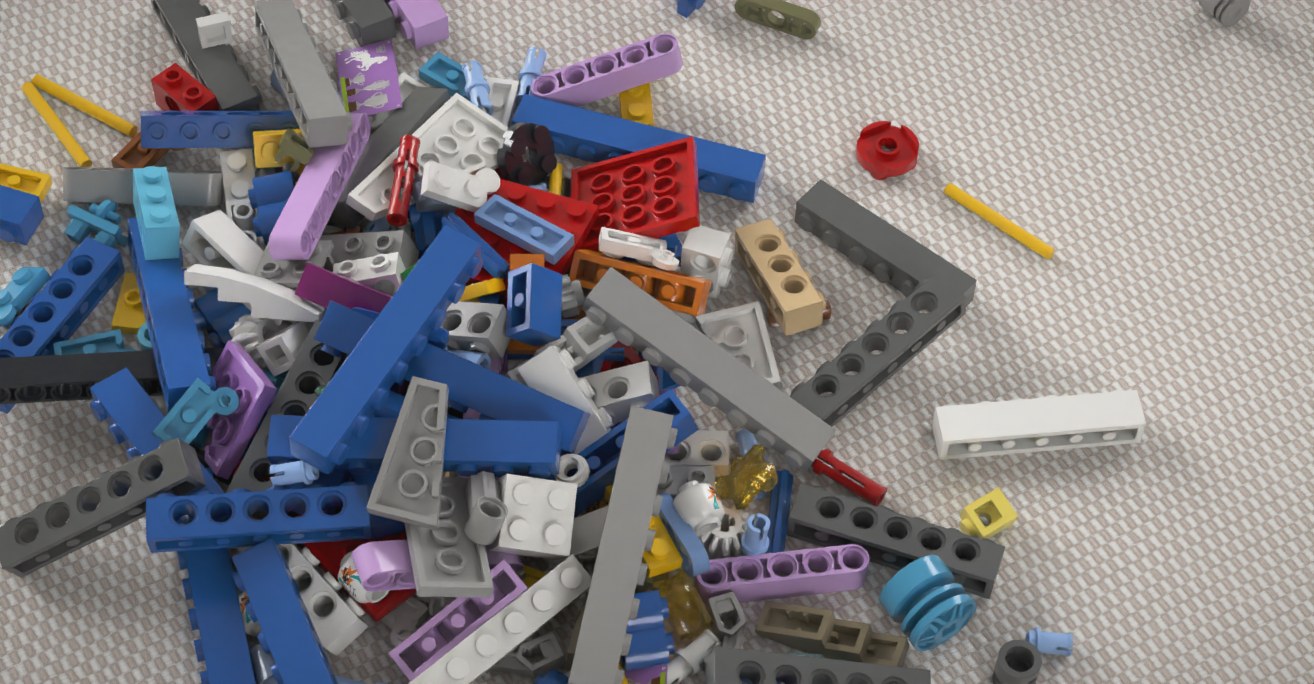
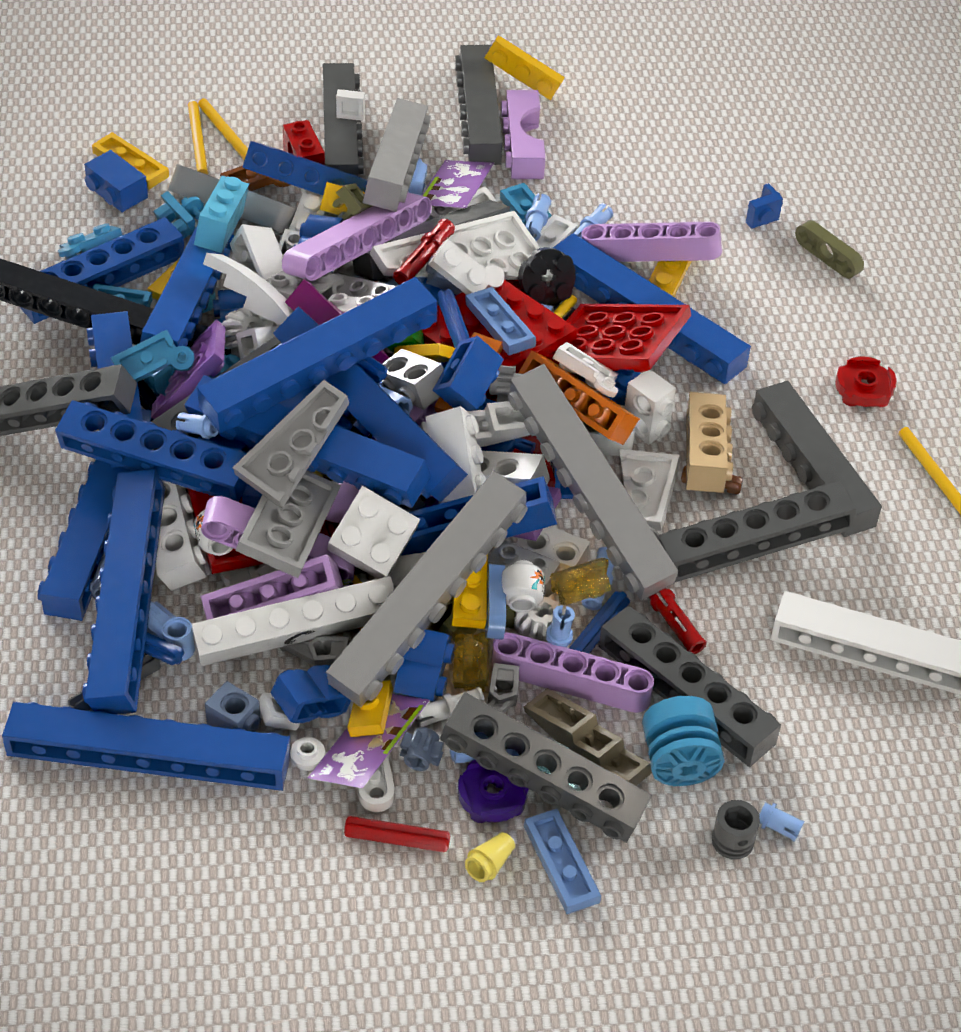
camera: 25 degrees right, 5 degrees down
(484, 508) = (330, 508): light grey piece -> none
(569, 462) = (428, 511): white plate -> none
(991, 506) = (786, 687): light yellow brick -> none

